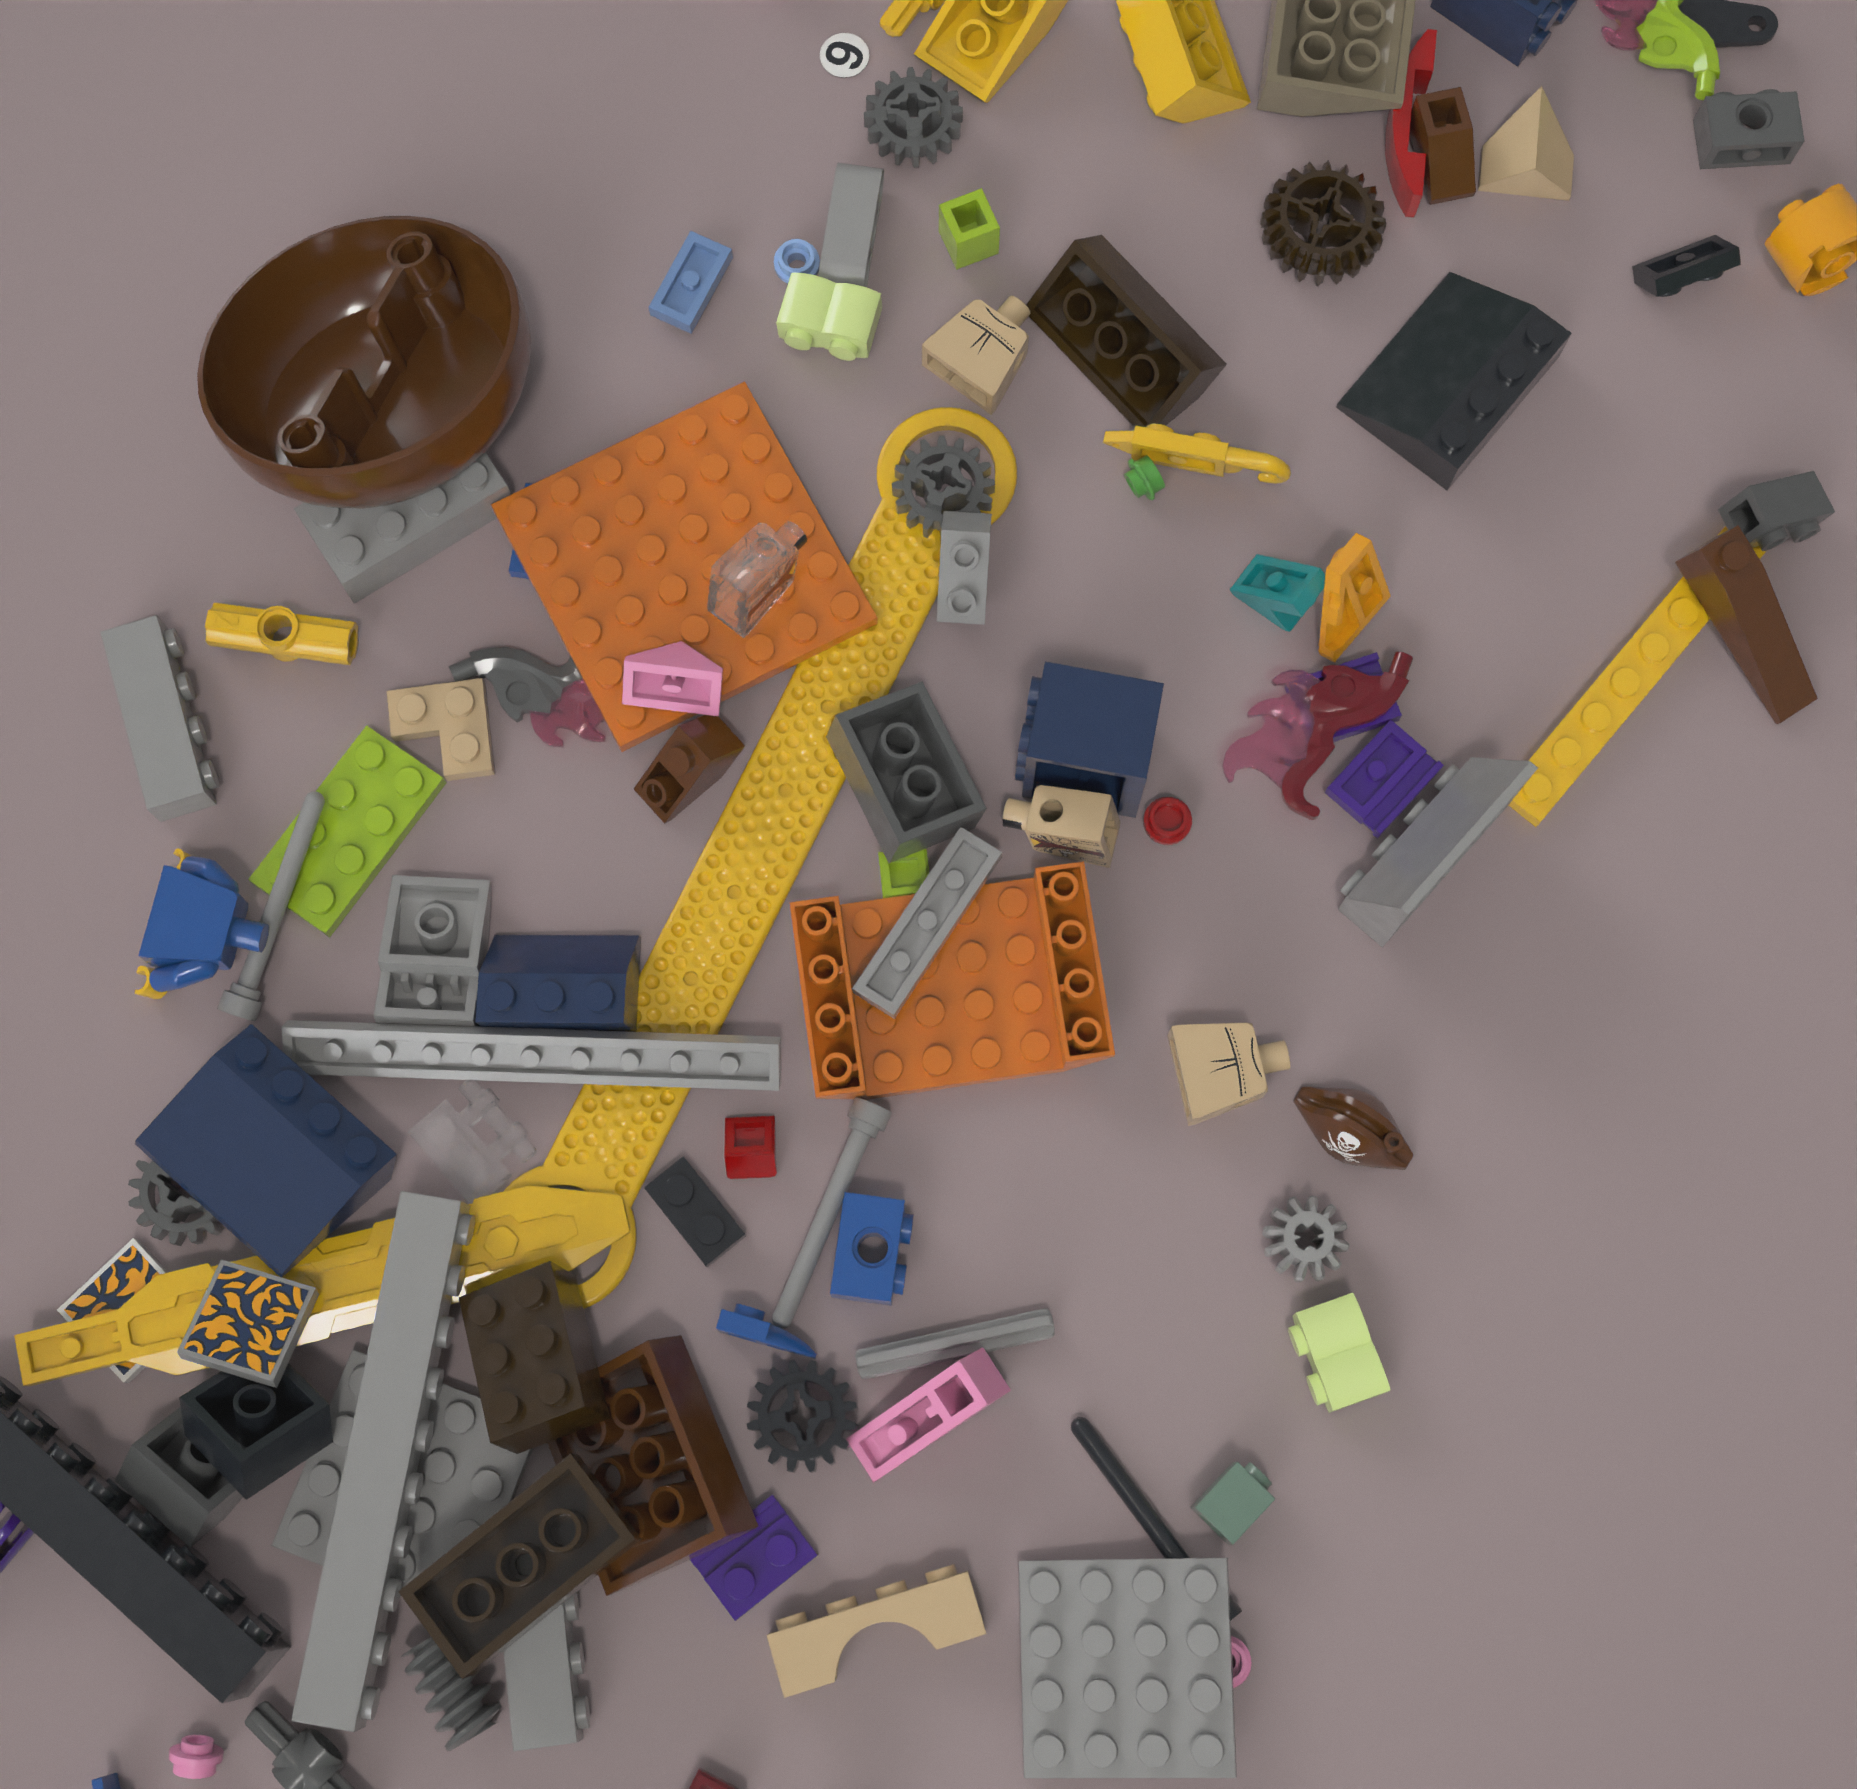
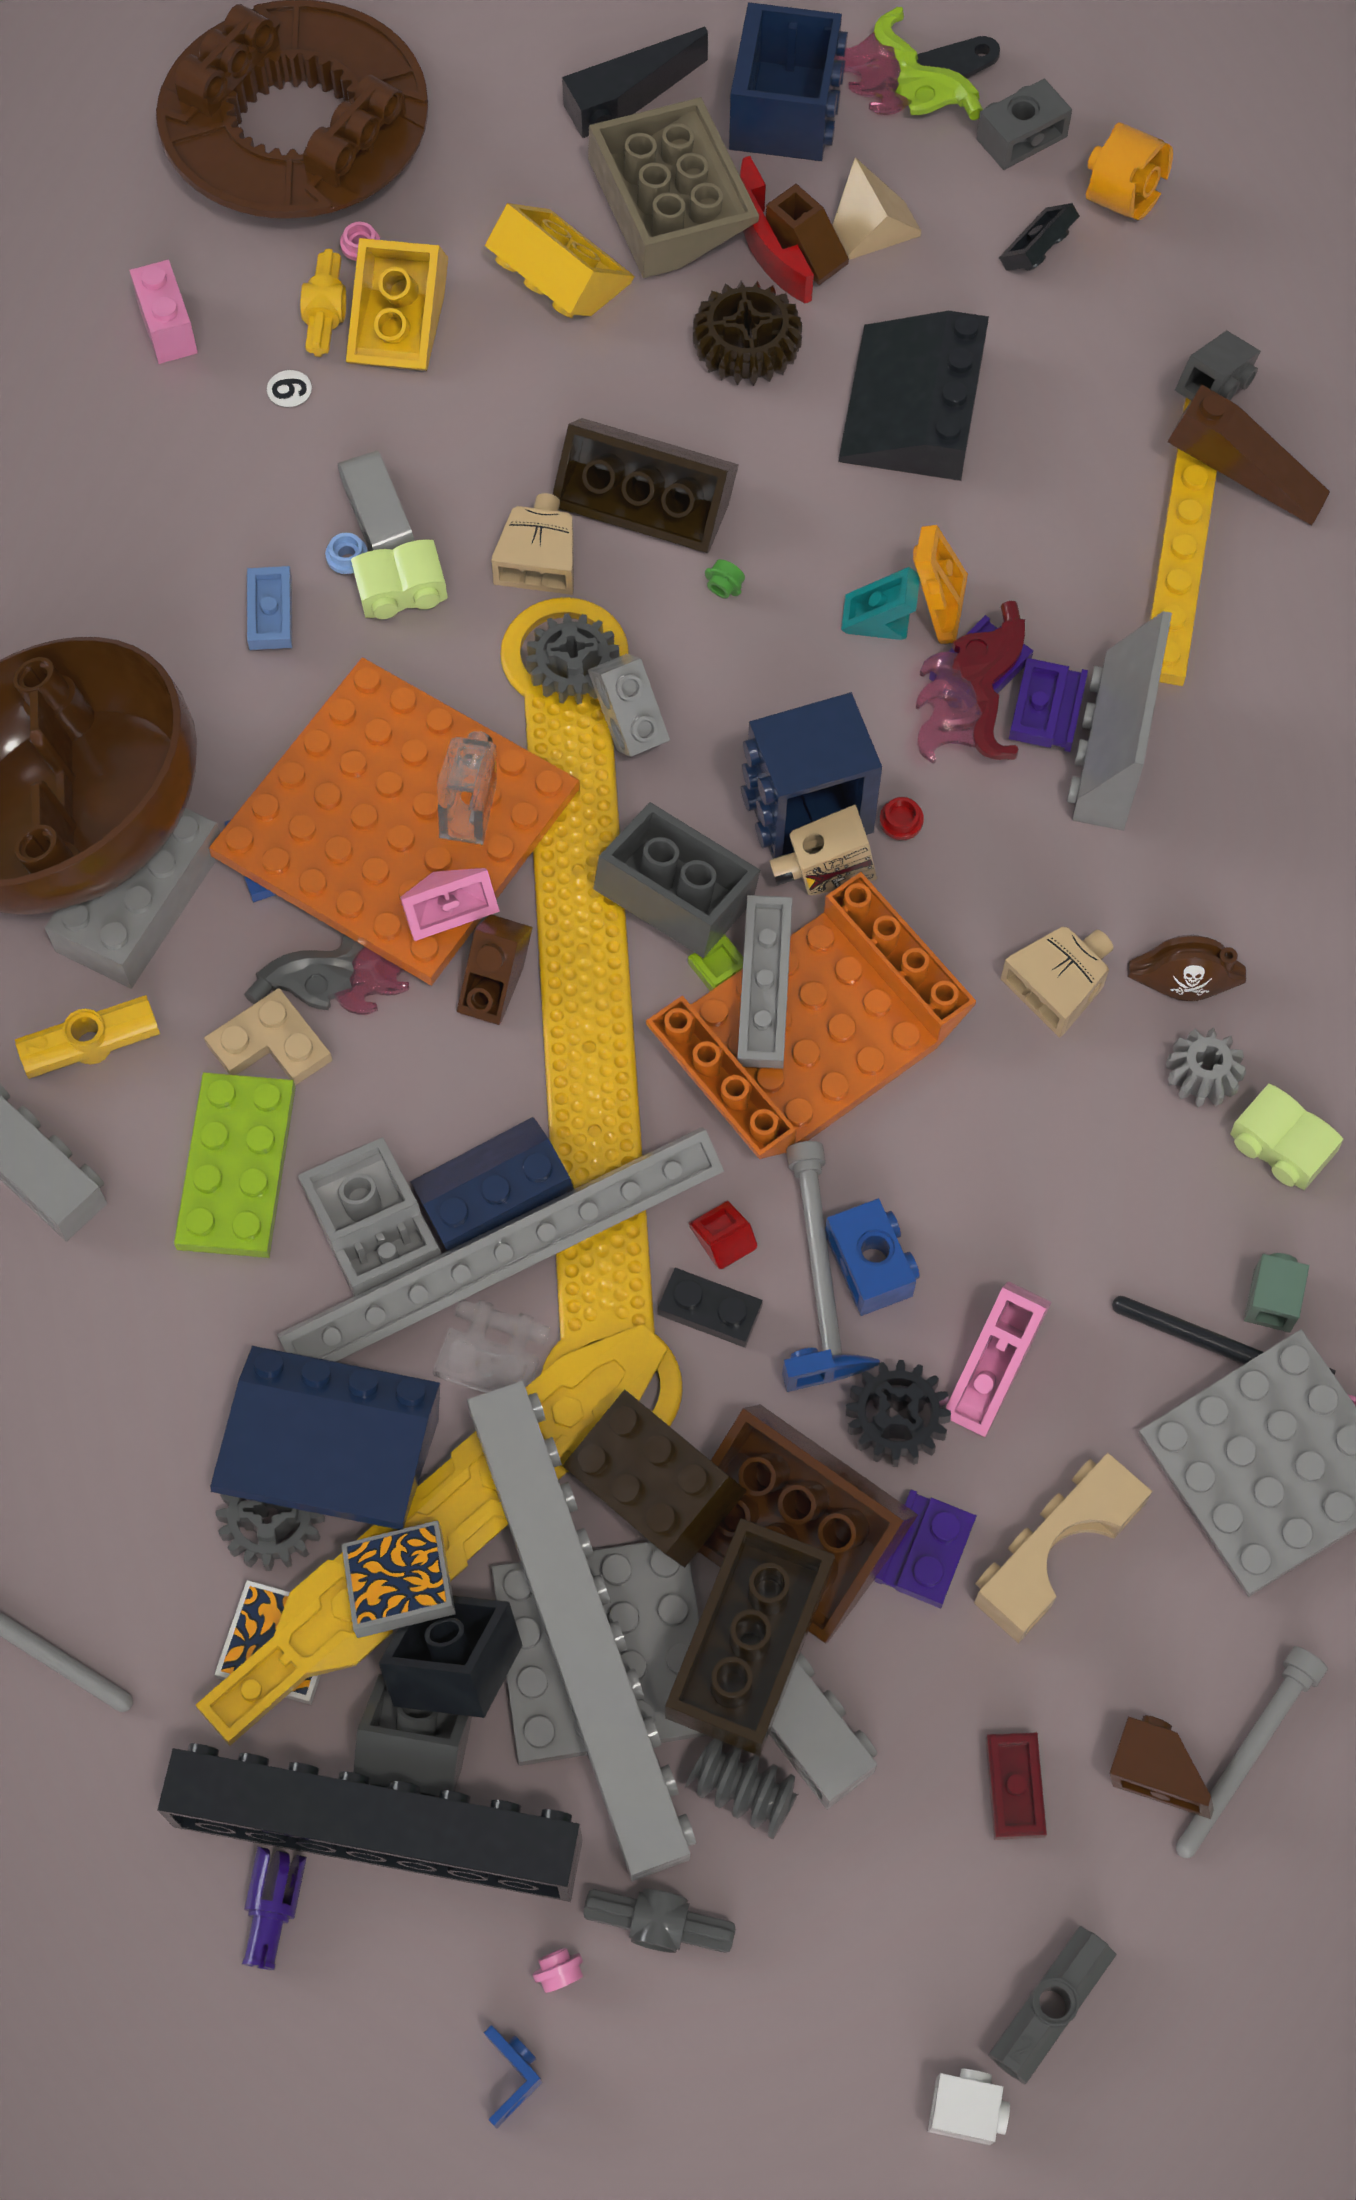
camera: 30 degrees left, 10 degrees down
(195, 926) = (156, 1296): blue torso -> none
(244, 996) = (226, 1336): light grey piece -> none
(931, 104) = (376, 404): dark grey gear -> none
(954, 1343) = (982, 1295): light grey axle -> none
(969, 228) = (474, 461): lime brick -> none
(1196, 453) = (755, 540): yellow plate -> none

